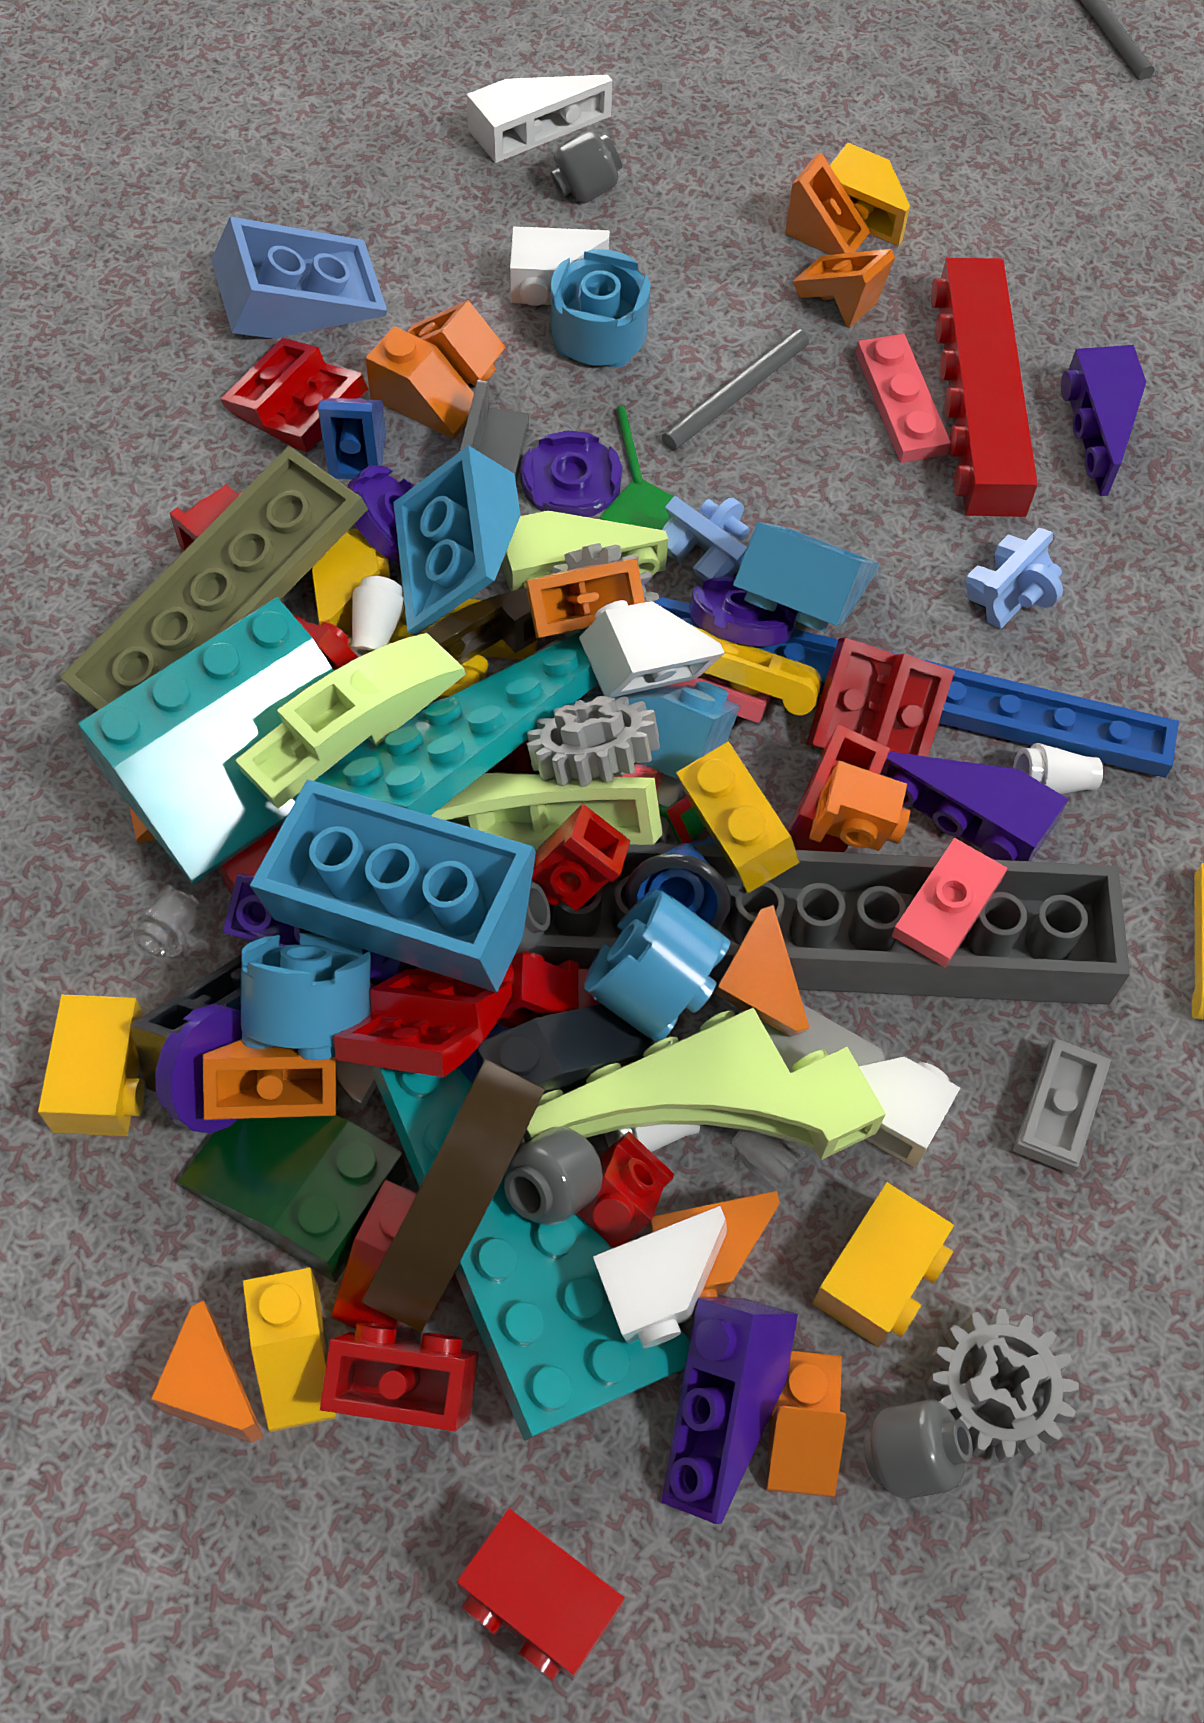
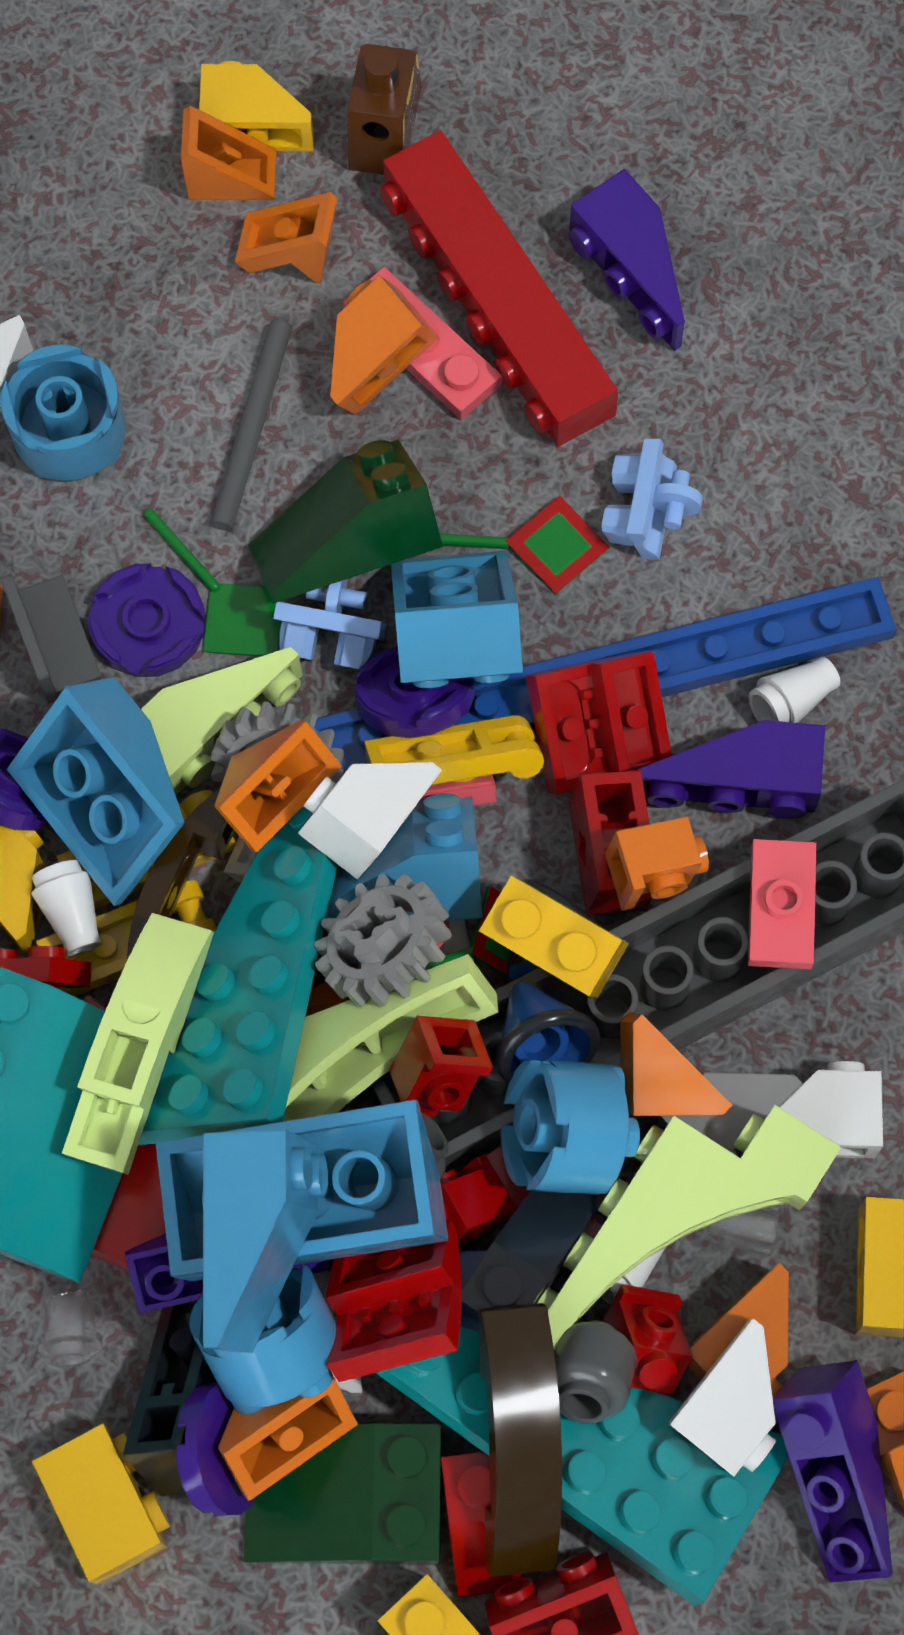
camera: 25 degrees left, 10 degrees up
(326, 862) = (255, 1220): none -> dark azure slope
(777, 471) = (349, 522): none -> dark green slope
(862, 369) = (375, 342): none -> orange slope
(917, 577) = (552, 544): none -> piece
(971, 217) = (382, 92): none -> reddish brown torso

